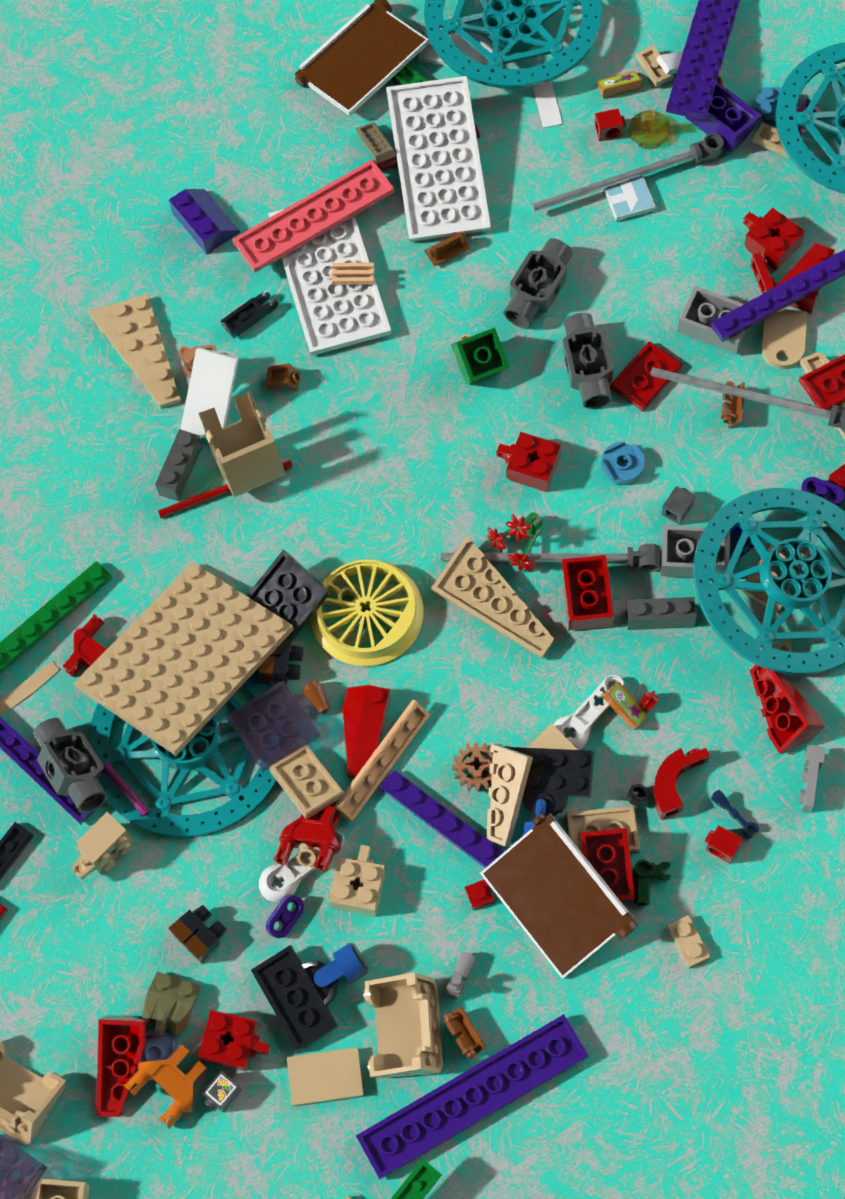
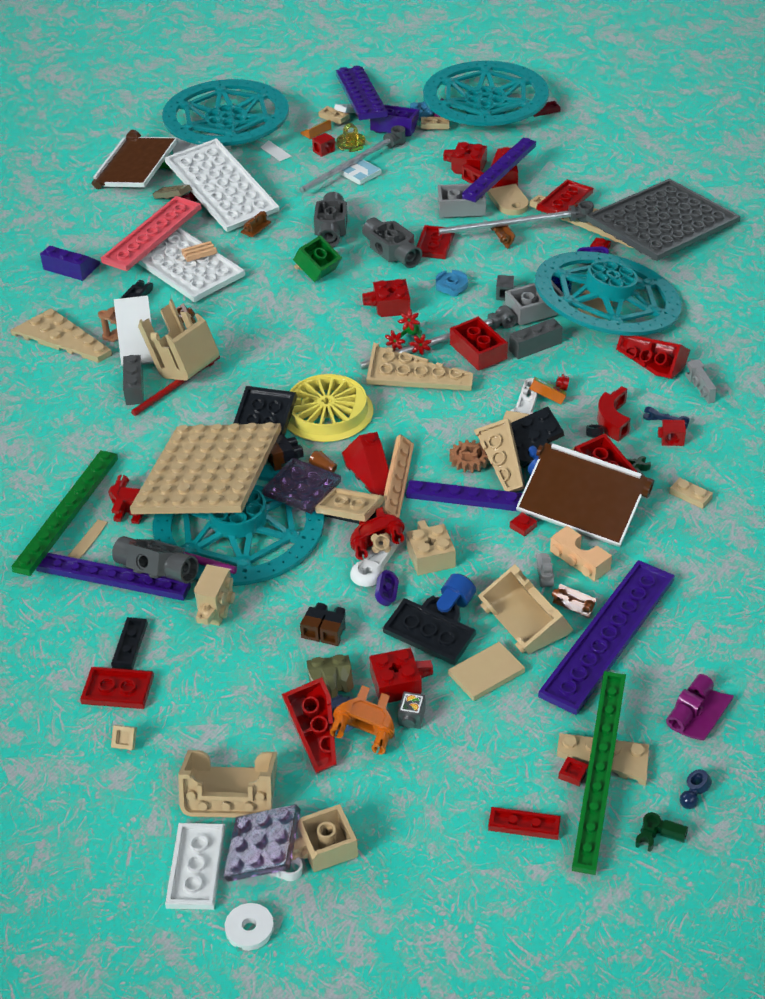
camera: 30 degrees left, 25 degrees down
(514, 992) = (591, 563): none -> light nougat arch

